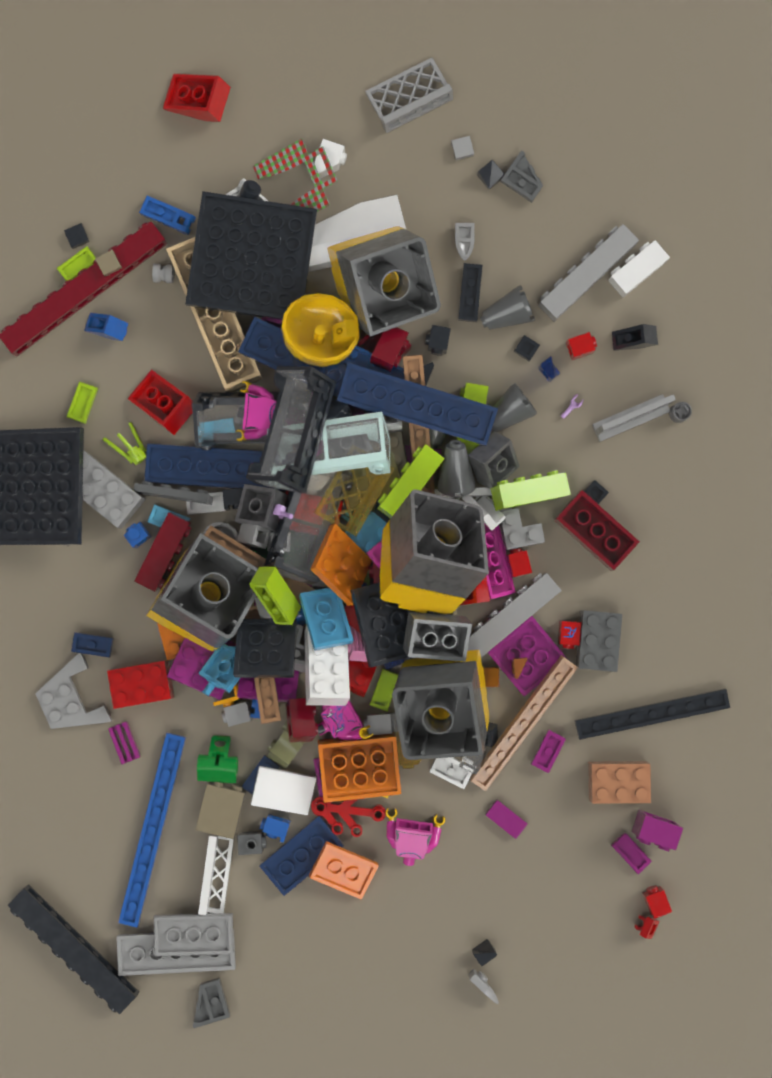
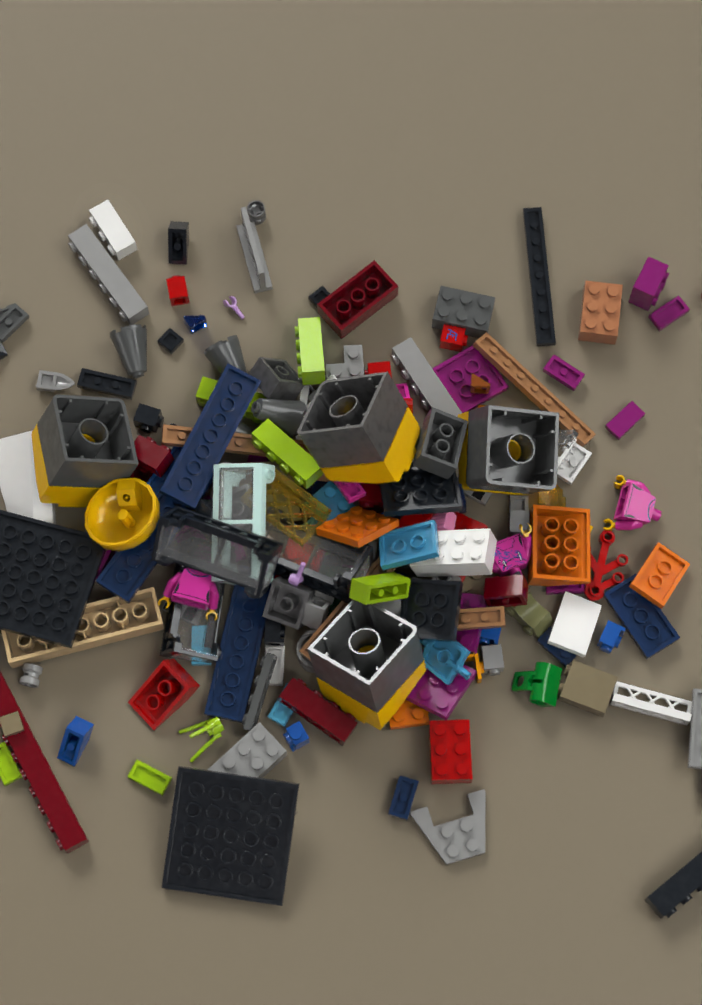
camera: 85 degrees left, 15 degrees down
(117, 746) = (507, 771): magenta tile -> none
(152, 830) = (601, 761): blue plate -> none
(251, 842) = (623, 663): dark grey brick -> none
(383, 692) = (486, 515): lime tile -> none

